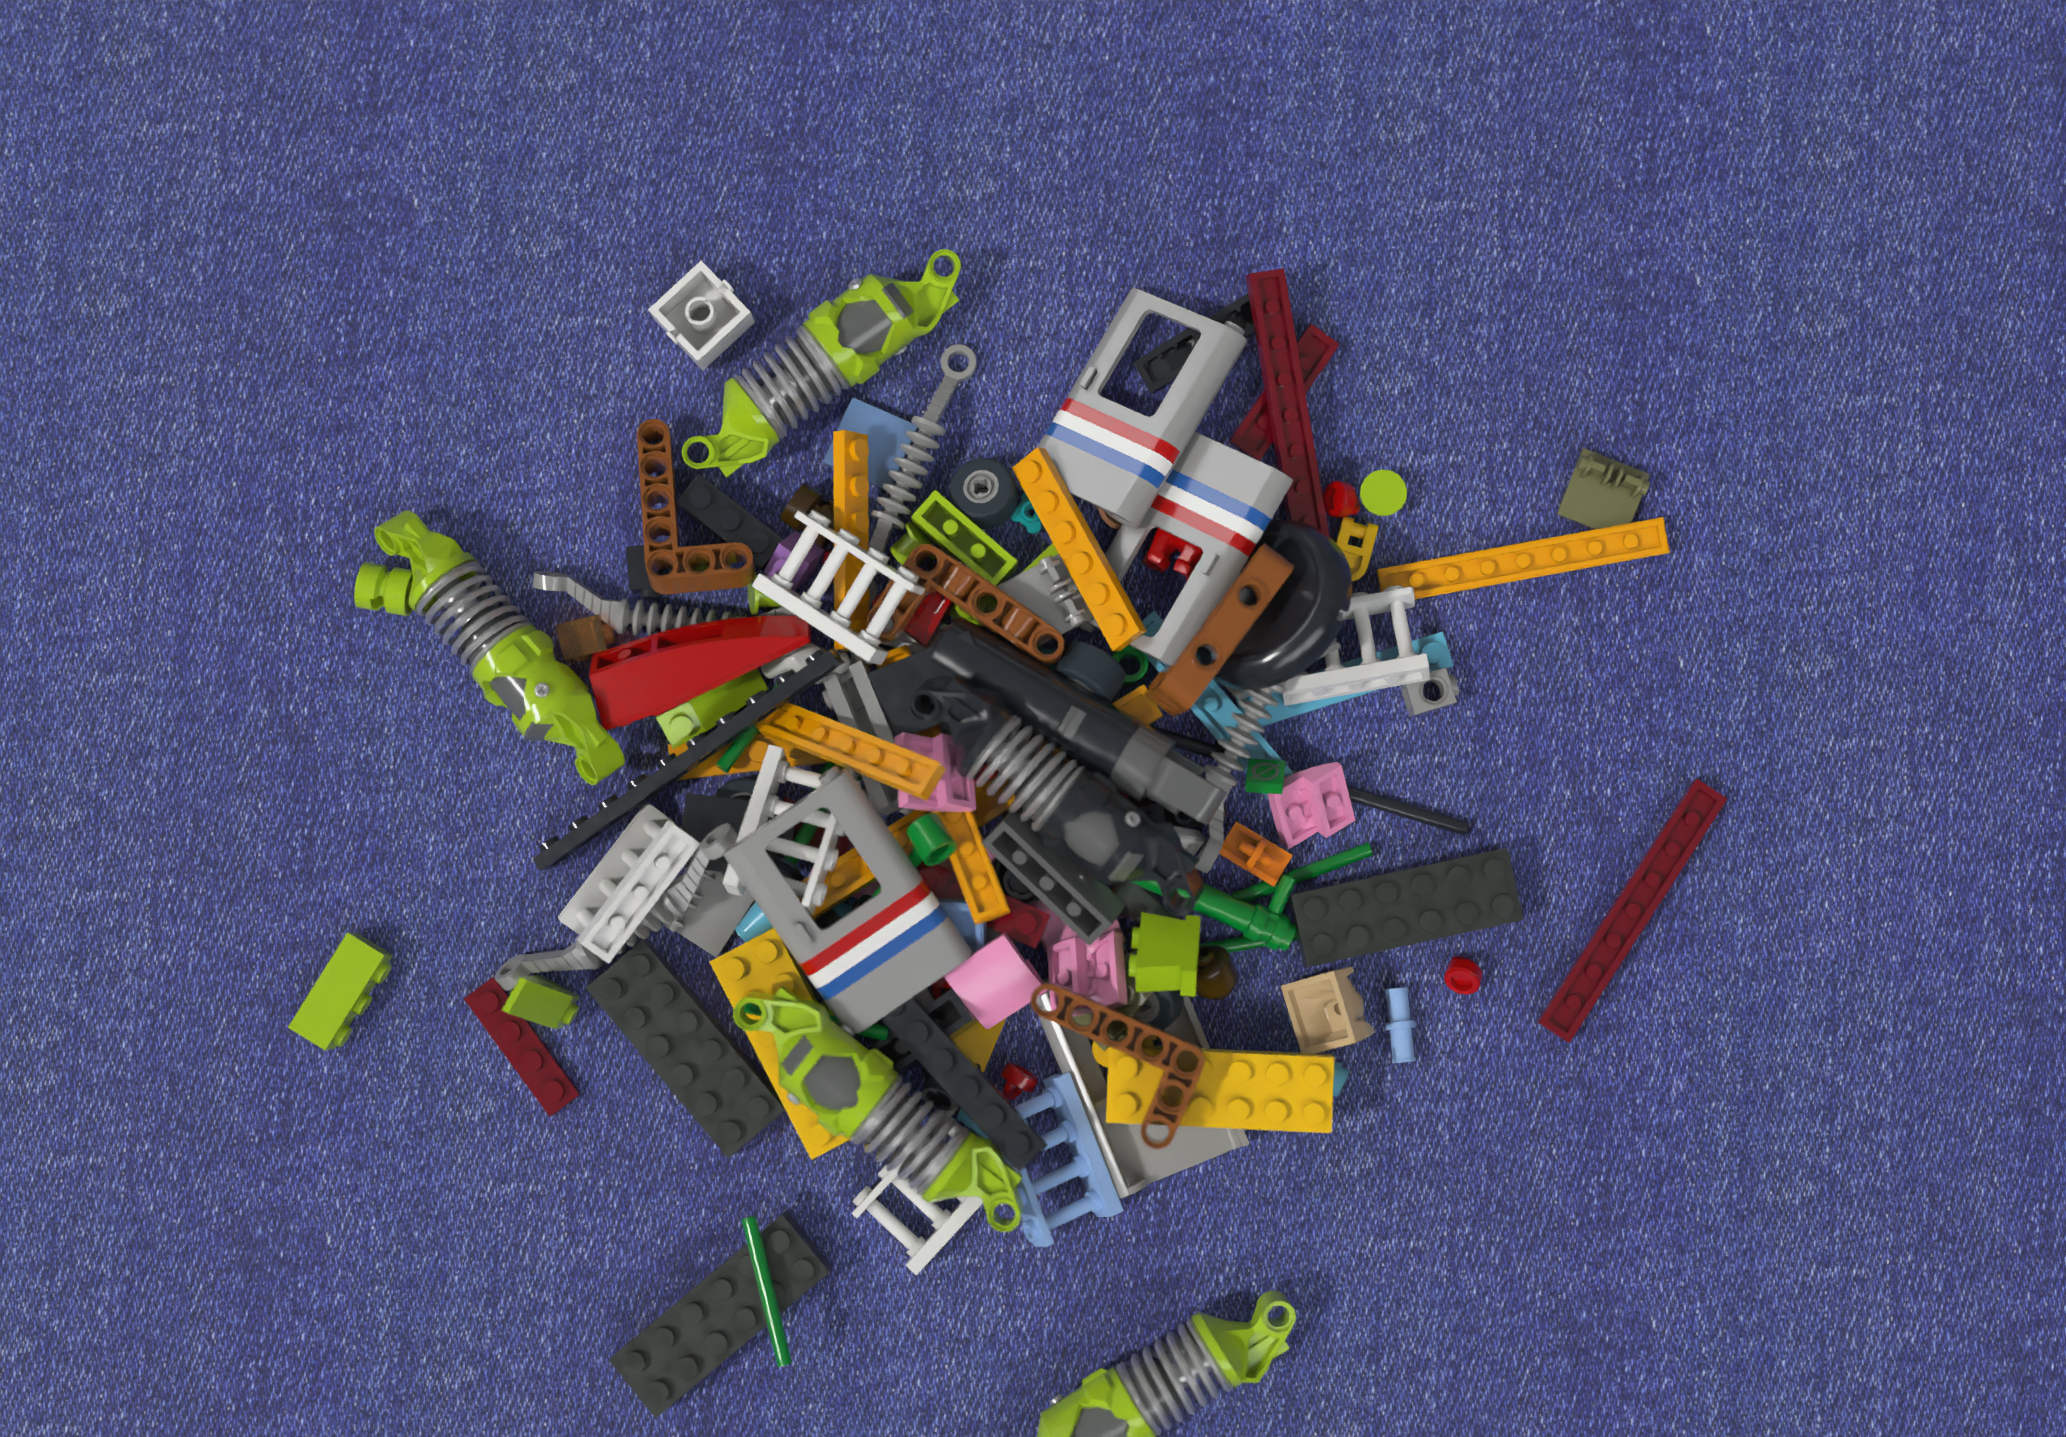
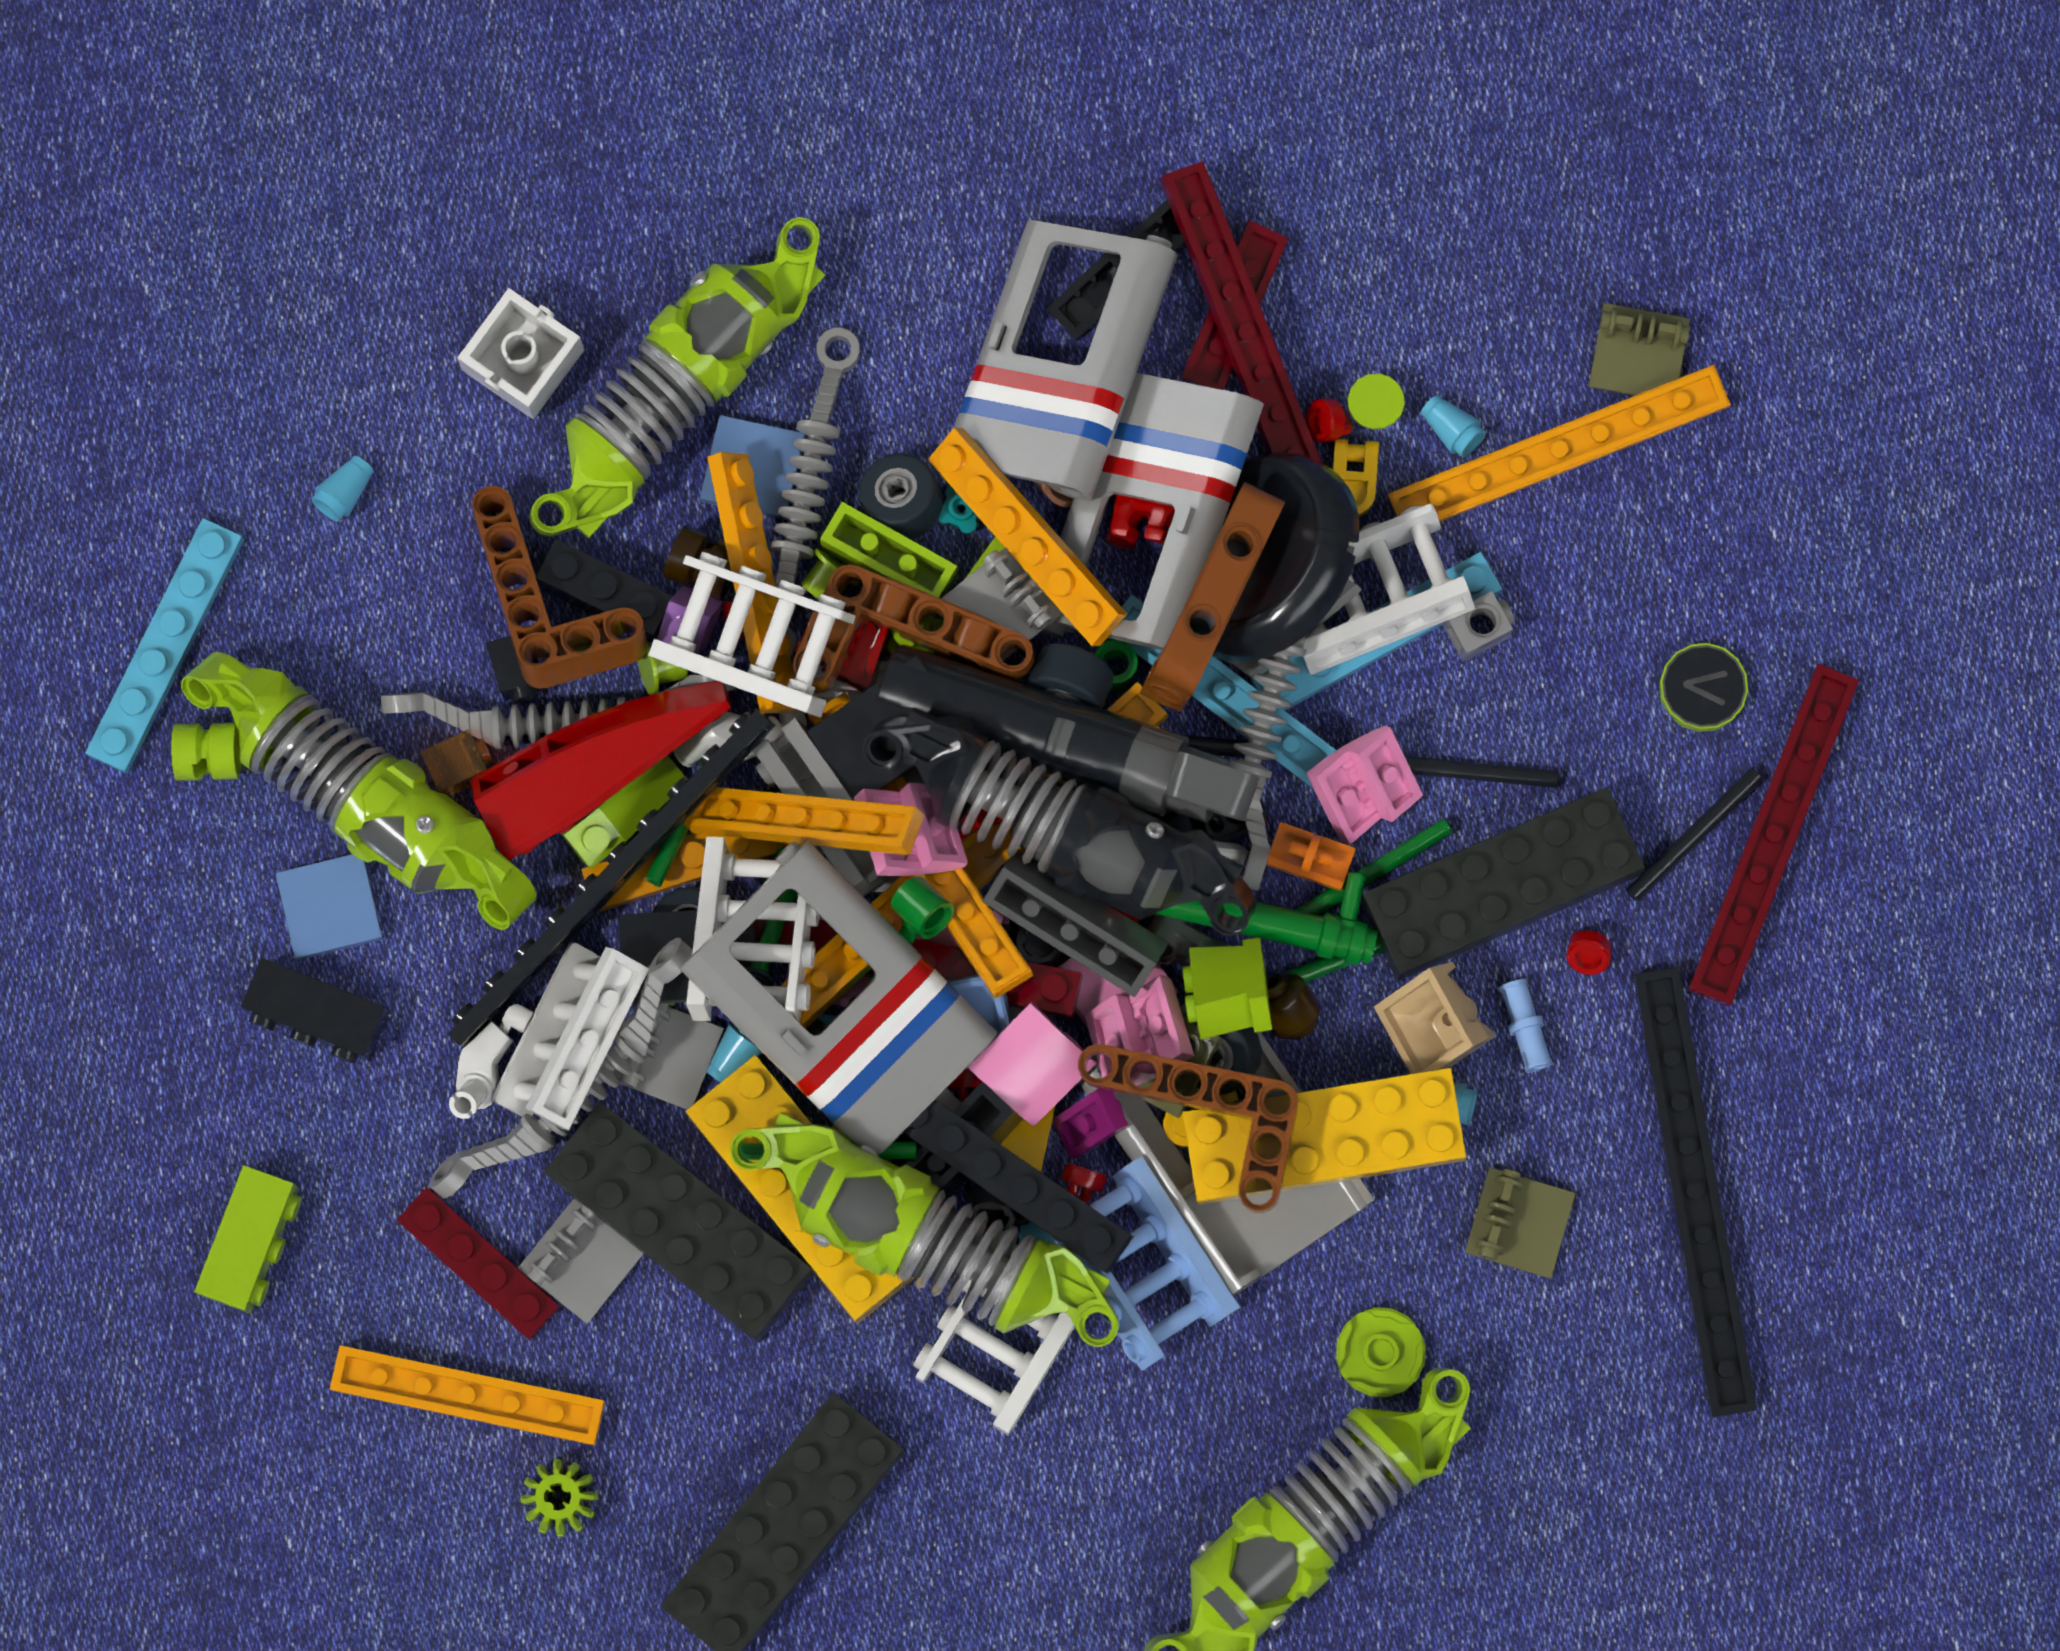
camera: 10 degrees left, 5 degrees down
(372, 495) = (164, 646): none -> medium azure plate
(431, 817) = (314, 1011): none -> black brick
(460, 733) = (329, 906): none -> medium blue tile
(492, 1152) = (467, 1395): none -> light orange plate
(538, 396) = (342, 489): none -> medium azure cone
(538, 1258) = (549, 1509): none -> lime gear
(542, 1002) = (496, 1199): lime slope -> none
(555, 886) = (479, 1063): none -> white arm
(602, 1062) = (580, 1261): none -> light grey hinge
(766, 1291) = (833, 1482): green piece -> none
(1033, 1036) = (1090, 1122): none -> magenta plate
(1229, 1265) = (1380, 1352): none -> lime tile
(1265, 776) = (1303, 758): green tile -> none
(1362, 1183) = (1520, 1222): none -> olive hinge
(1441, 524) = (1453, 426): none -> medium azure cone
(1508, 1189) = (1694, 1193): none -> black plate
(1567, 896) = (1694, 834): none -> black piece
(1599, 778) = (1703, 687): none -> black tile

